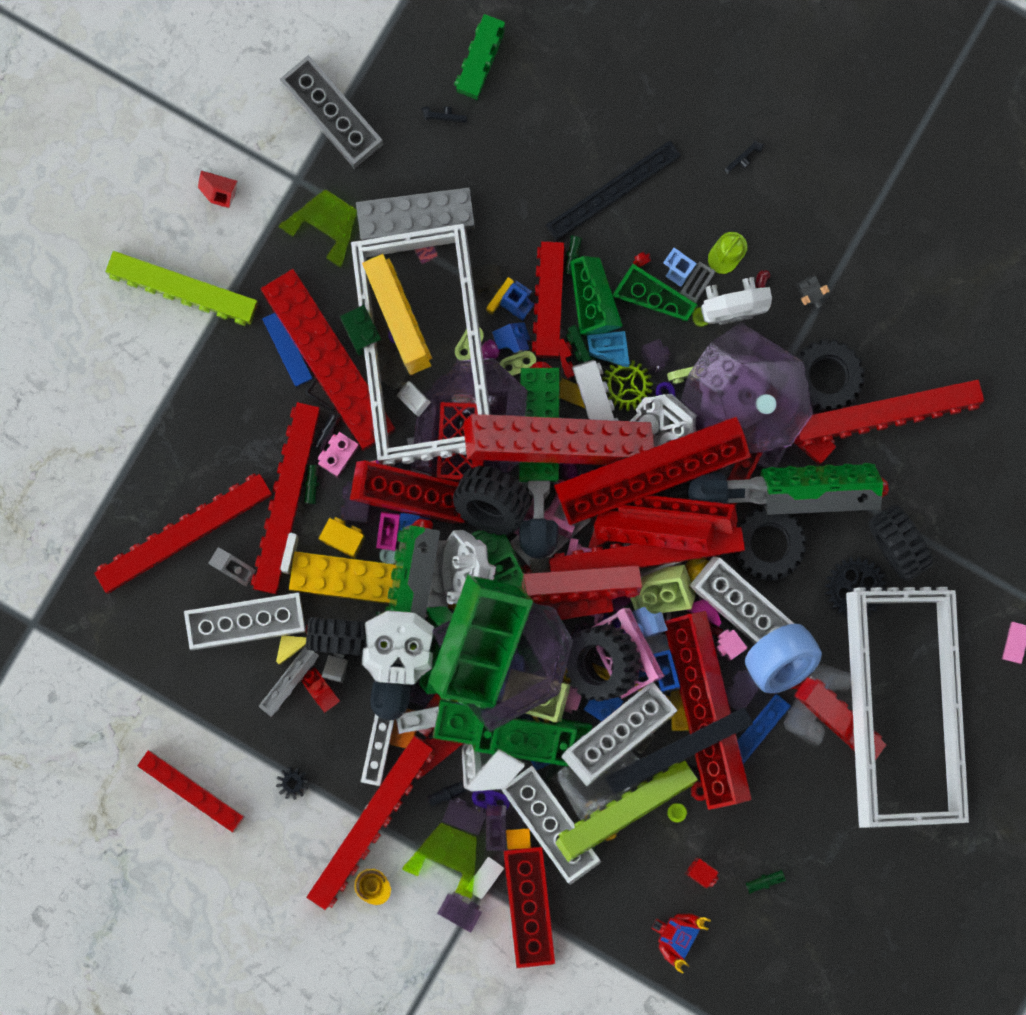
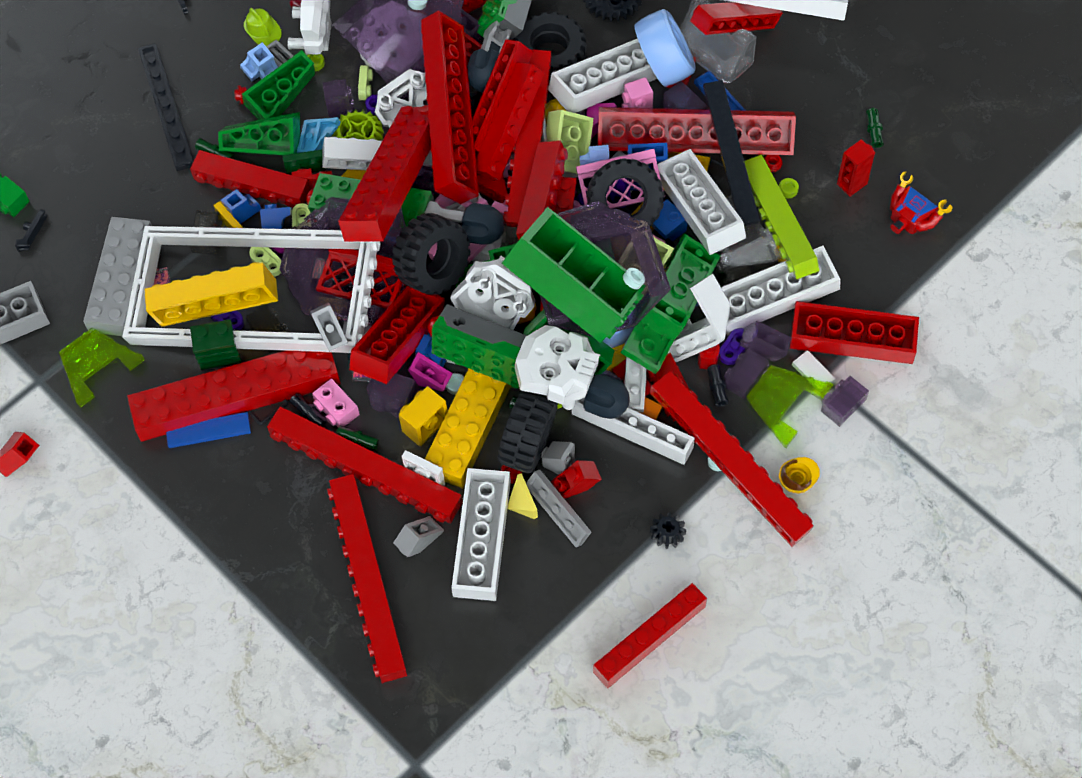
camera: 70 degrees left, 20 degrees down
(181, 287) = (103, 516): lime brick -> none
(387, 431) = (328, 327): none -> light grey slope
(413, 398) = (301, 318): white tile -> none
(493, 696) = (634, 278): none -> light aqua tile
(518, 838) = (782, 323): light orange panel -> none

